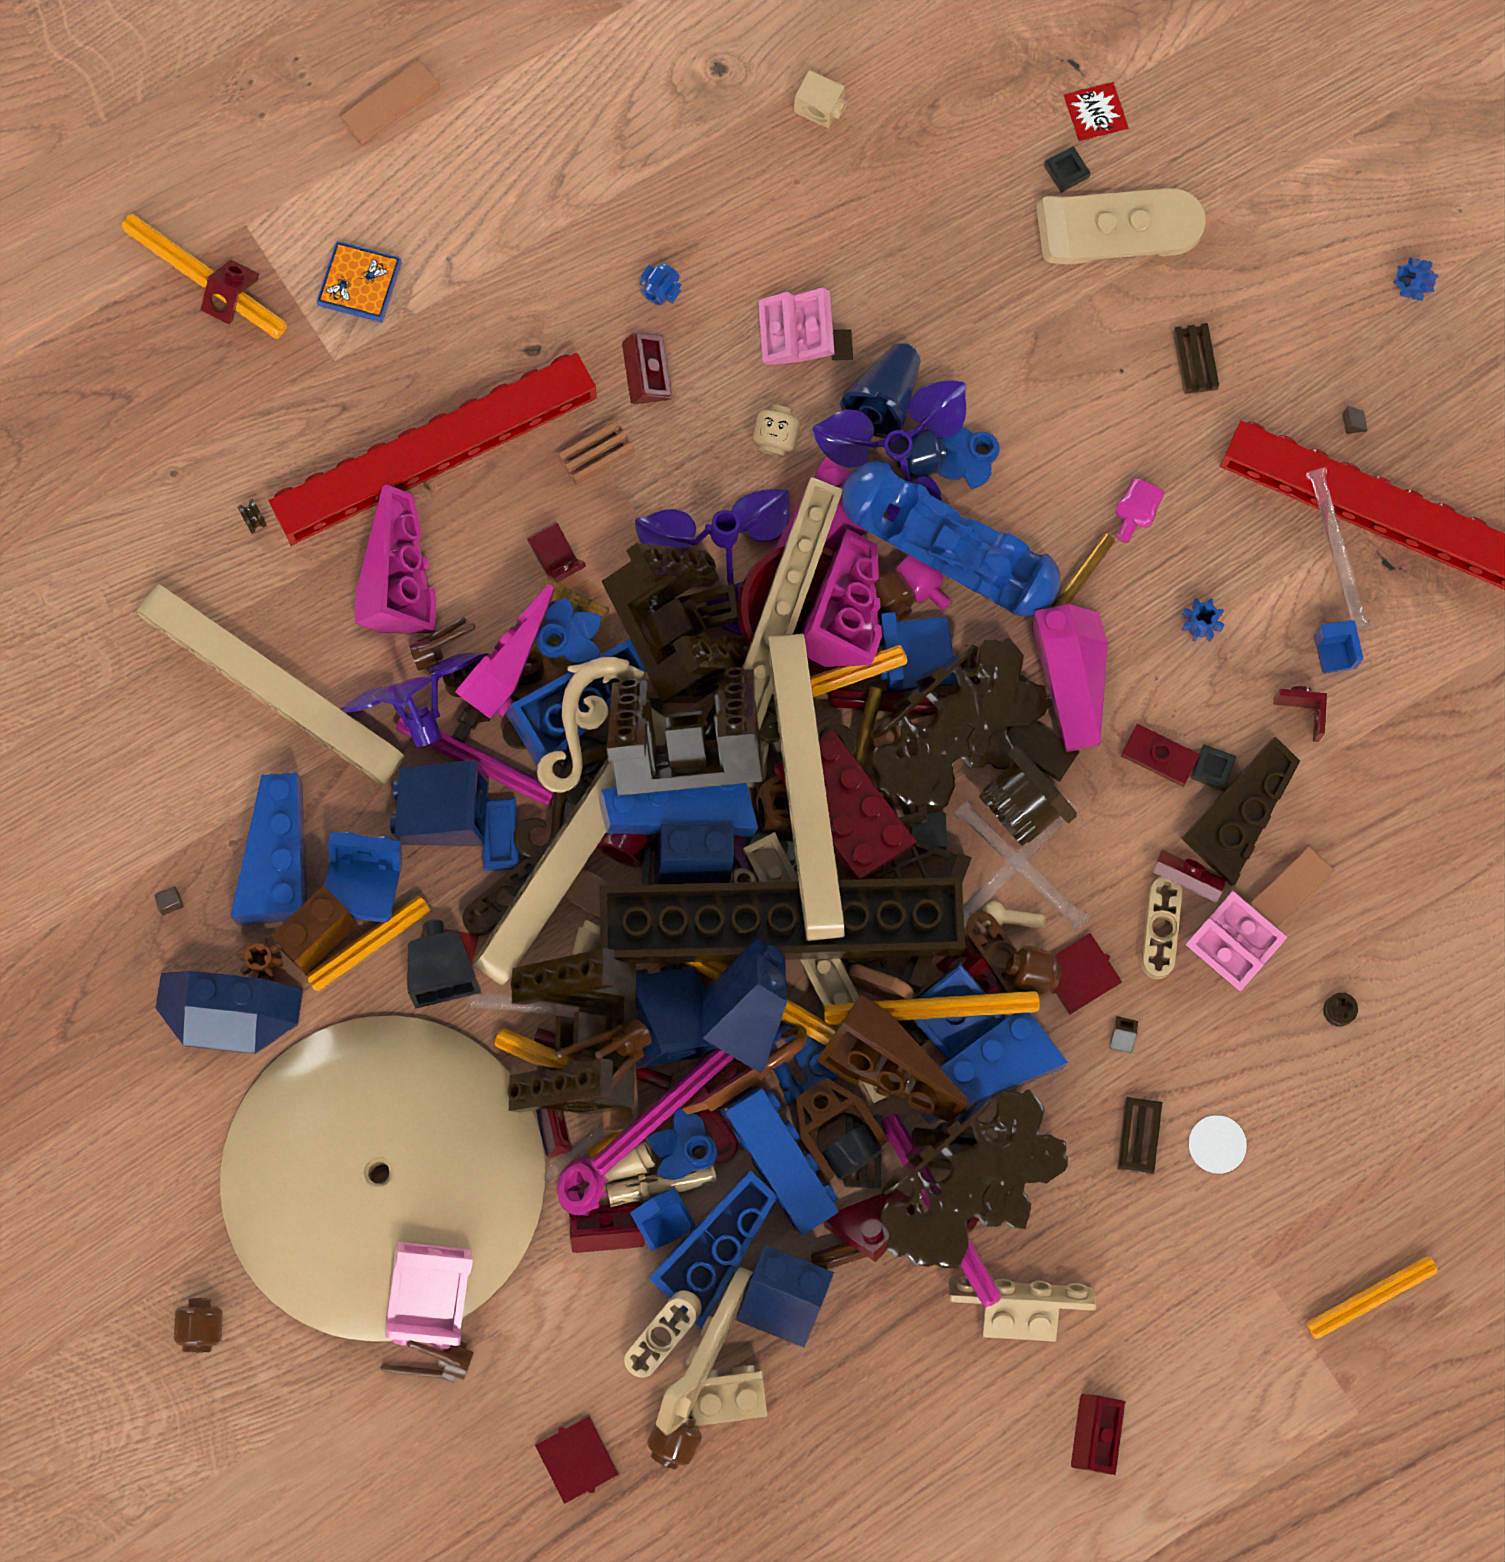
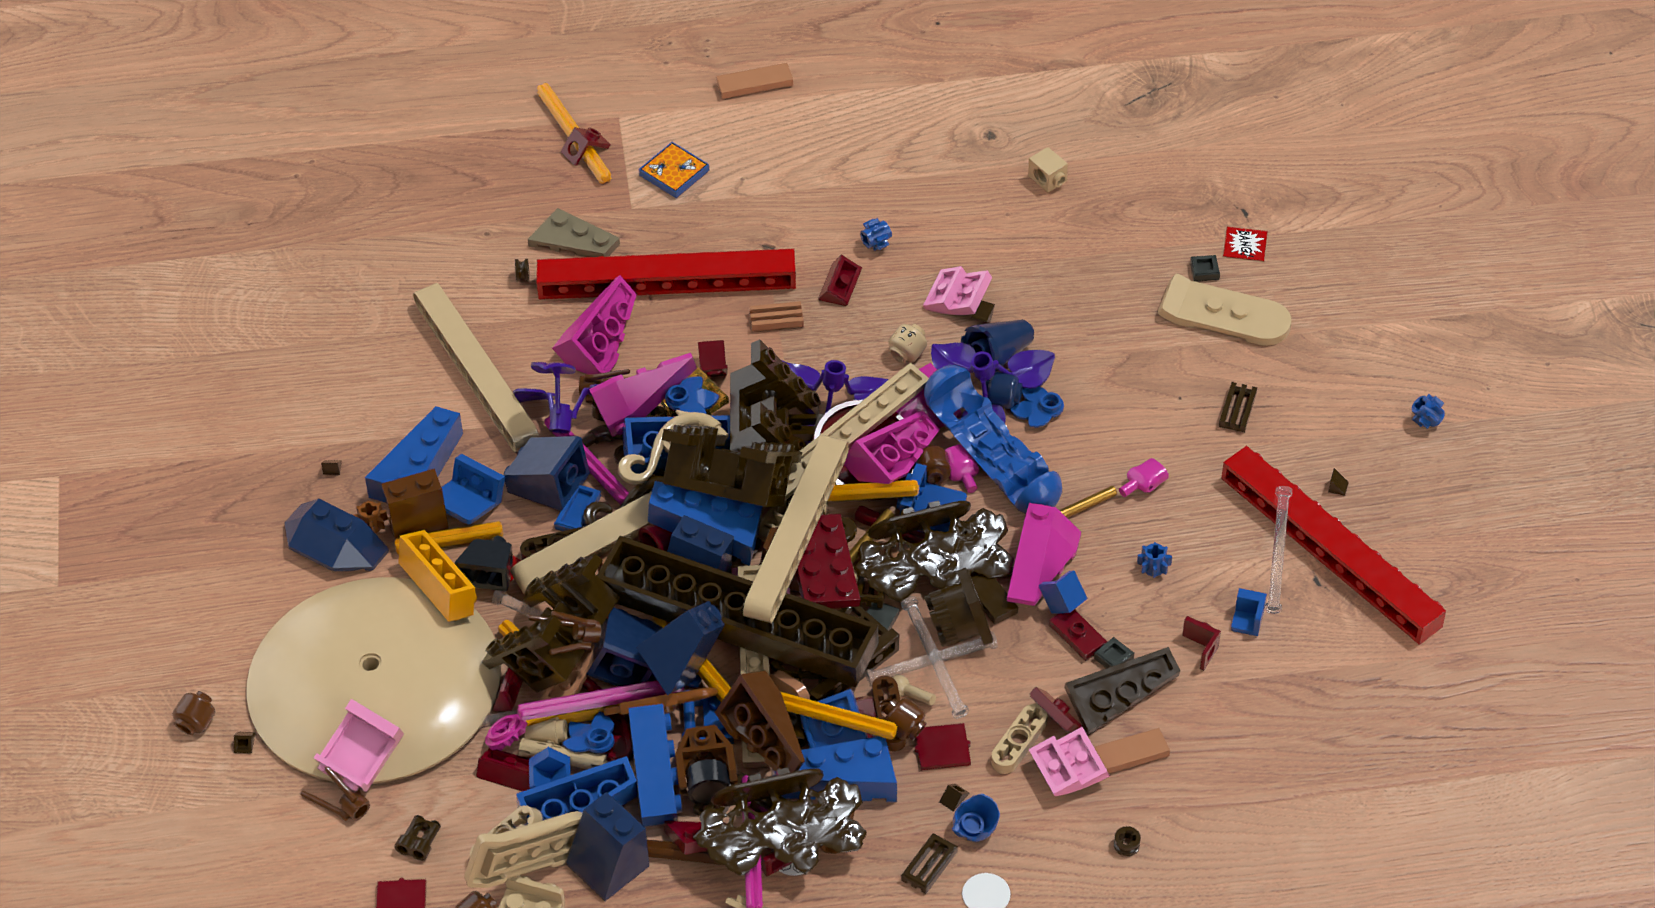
camera: 30 degrees right, 25 degrees down
(275, 1330) = (244, 742): none -> dark brown piece
(282, 434) = (573, 234): none -> dark tan wing
(393, 1016) = (437, 575): none -> light orange brick
(547, 1380) = (411, 844): none -> dark brown piece
(1131, 719) = (1063, 594): none -> blue panel
(1170, 1062) = (976, 818): none -> blue hair

